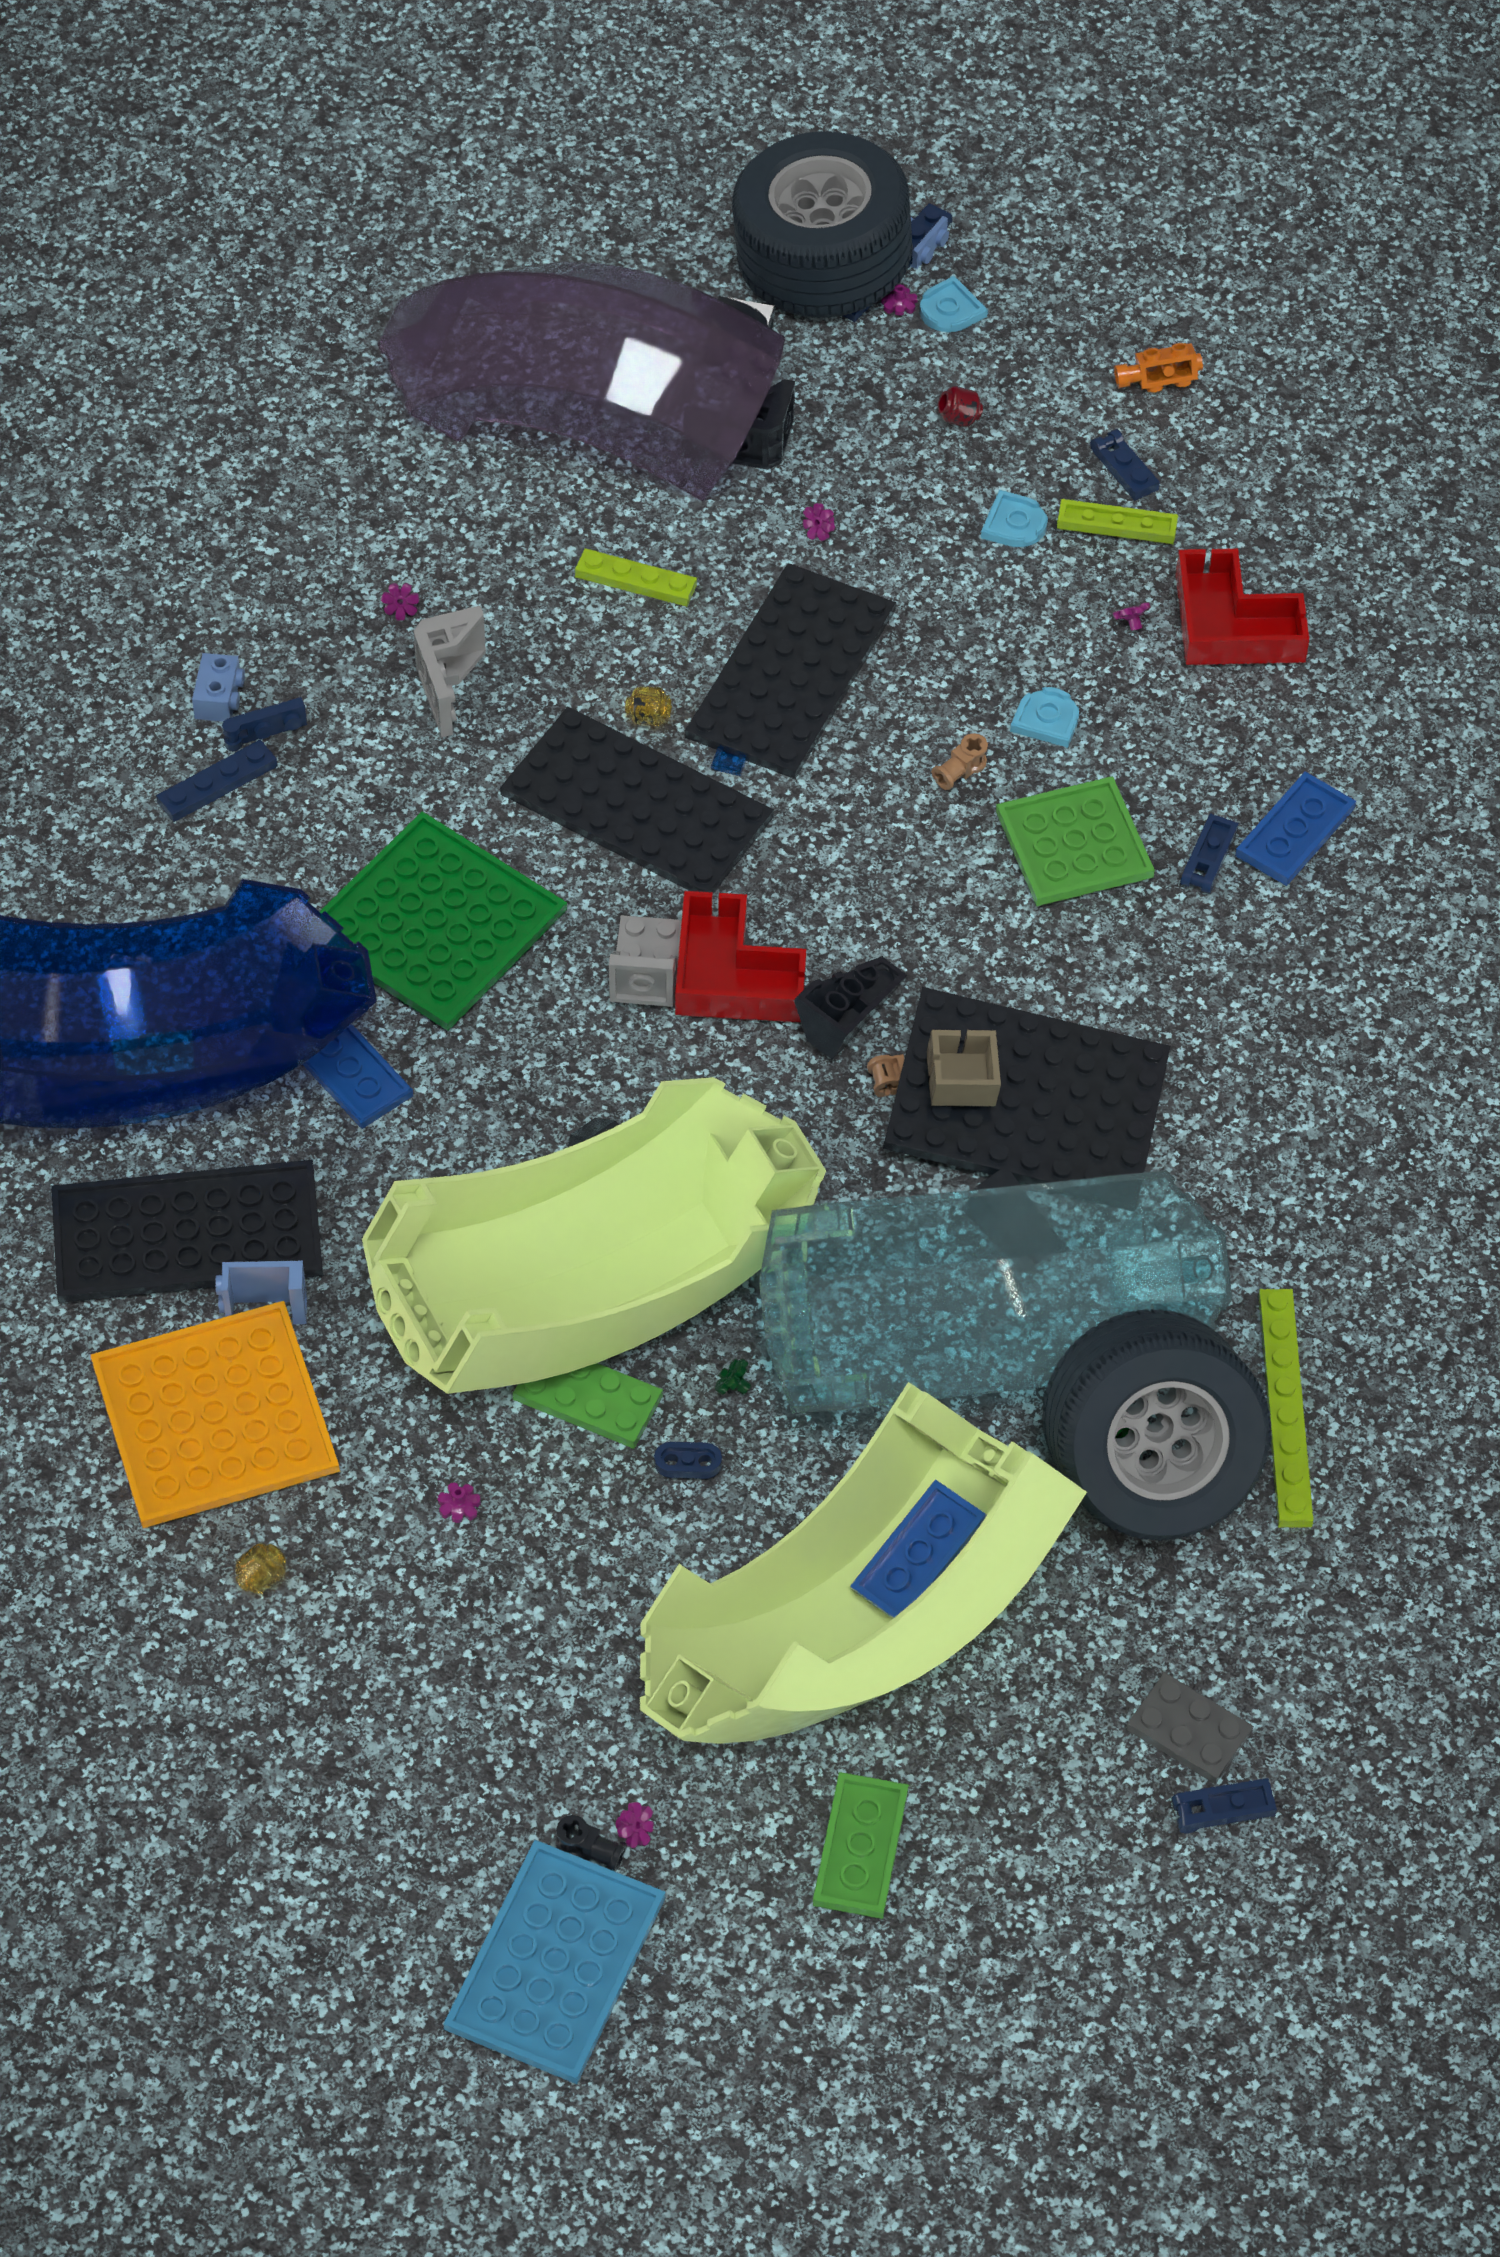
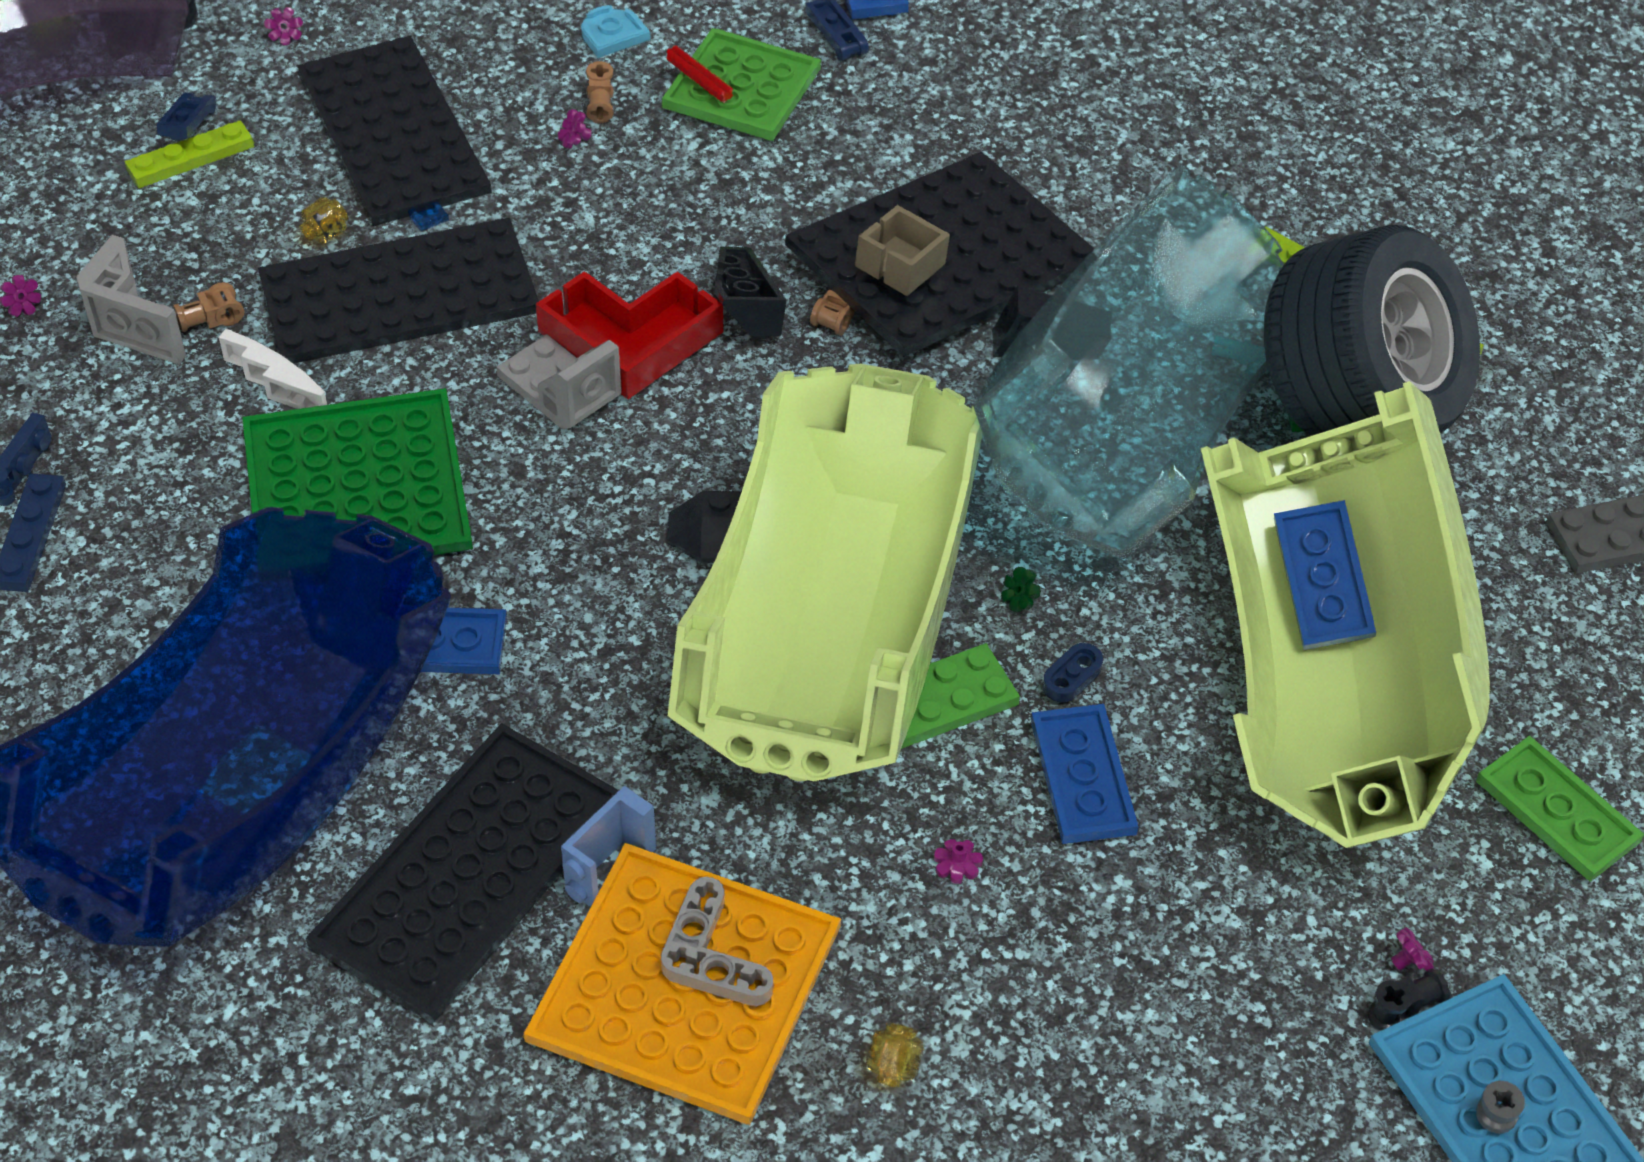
camera: 50 degrees left, 5 degrees down
(233, 1398) = (695, 950): none -> light grey beam
(478, 799) = (281, 378): none -> white slope
(500, 712) = (210, 308): none -> medium nougat connector
(537, 1957) = (1504, 1116): none -> dark grey wheel
(602, 1526) = (1083, 774): none -> blue plate
(661, 544) = (185, 115): none -> dark blue plate
(905, 777) = (574, 129): none -> magenta plant
(1043, 807) = (699, 74): none -> red axle

